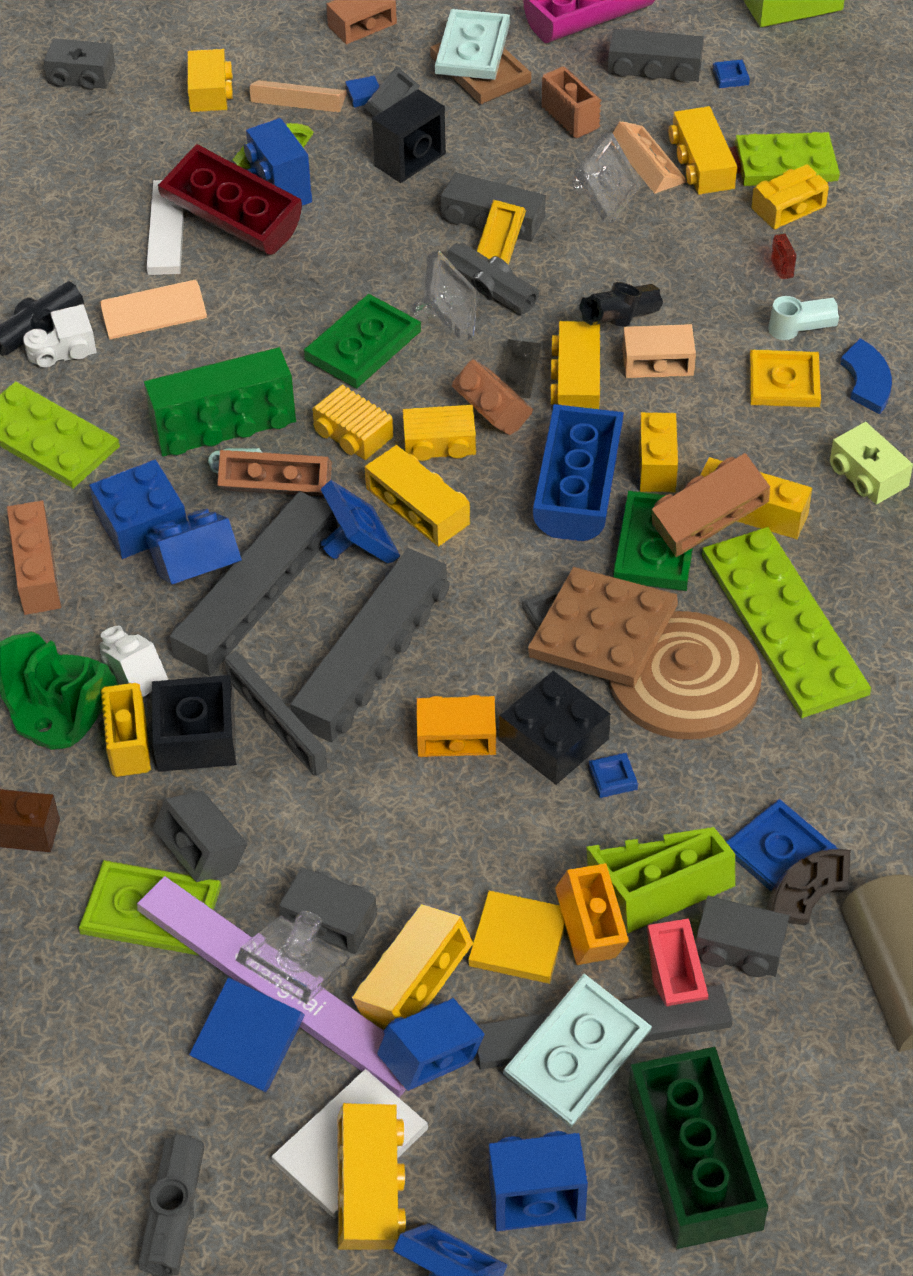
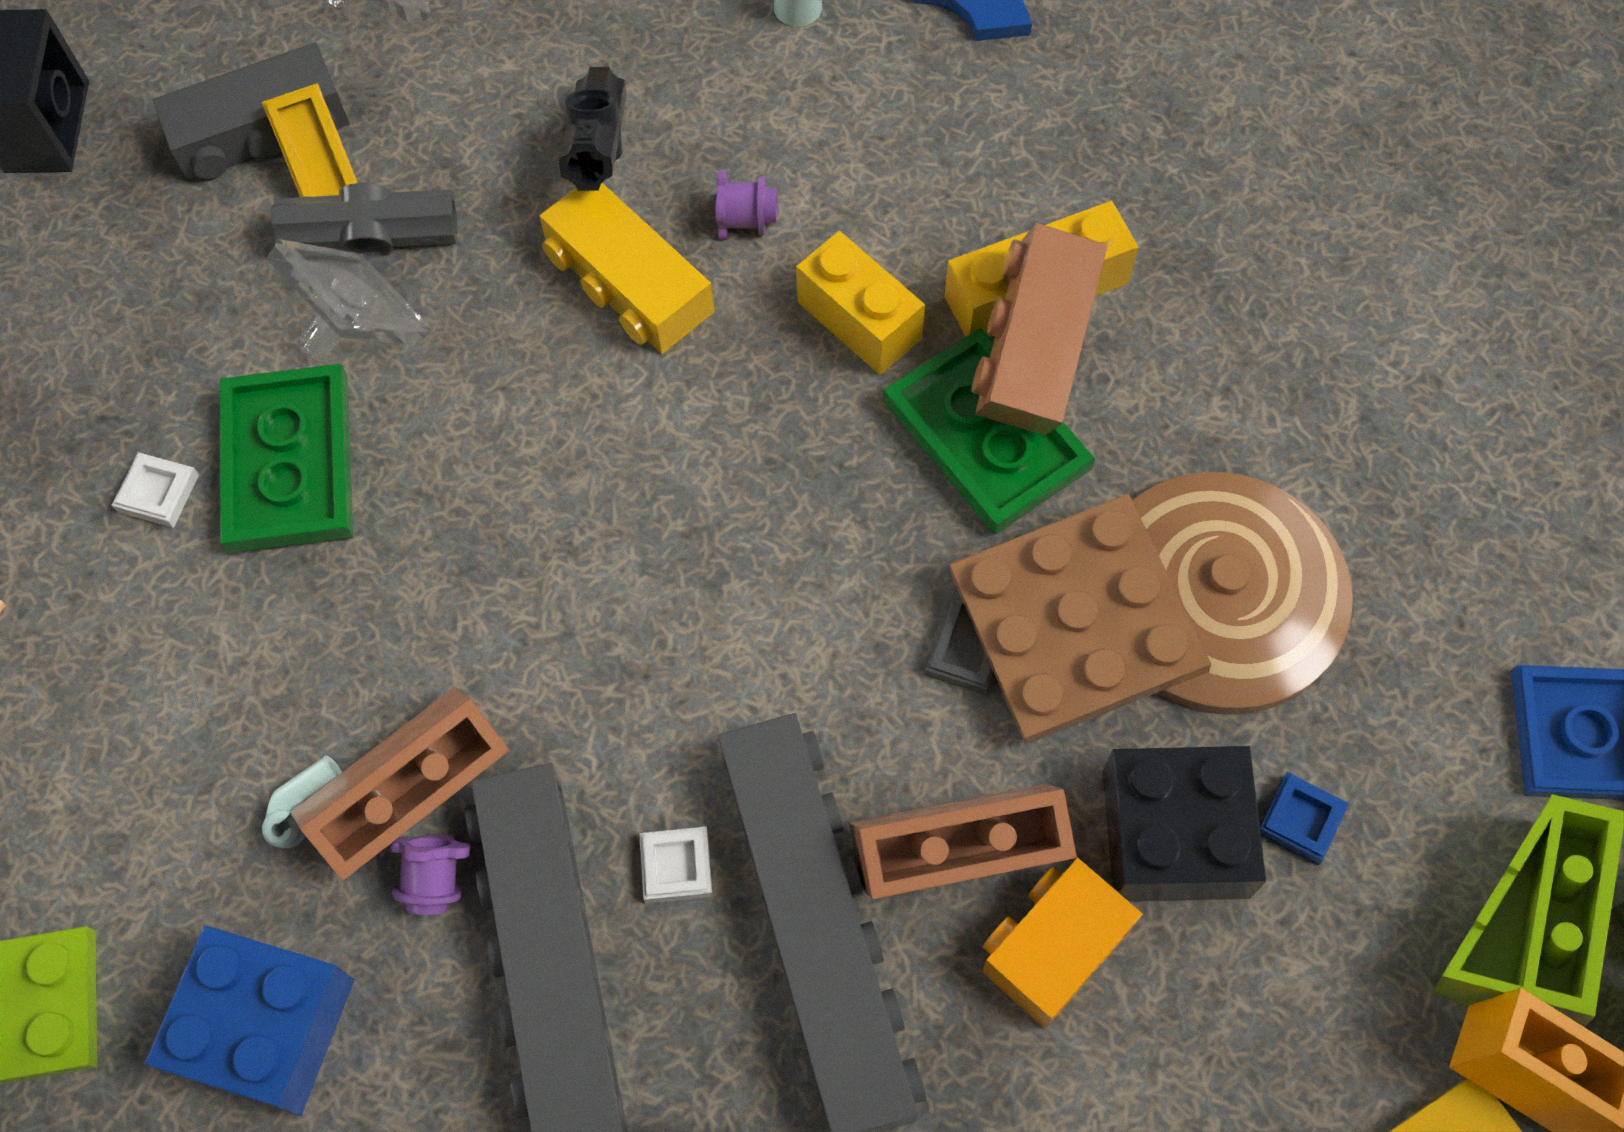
camera: 45 degrees left, 15 degrees up
(192, 546) = (420, 1020): blue brick -> none
(220, 401) = (196, 739): green brick -> none
(251, 513) = (428, 872): none -> medium lavender brick
(303, 317) = (155, 490): none -> white tile
(345, 589) = (675, 865): none -> white tile
(352, 422) = (412, 599): yellow brick -> none
(357, 525) = (606, 759): blue tile -> none
(417, 495) = (623, 632): yellow brick -> none
(439, 432) = (548, 511): yellow brick -> none
(458, 657) = (962, 840): none -> nougat brick
(492, 397) = (566, 401): nougat brick -> none
(520, 366) = (541, 325): clear smoke plate -> none
(577, 472) = (802, 414): blue brick -> none
(655, 382) = (744, 205): none -> medium lavender brick
(659, 351) = (683, 159): light nougat brick -> none
(785, 378) = (877, 73): yellow tile -> none
(786, 622) = (1252, 412): lime plate -> none
(870, 463) = (1110, 110): yellowish green brick -> none

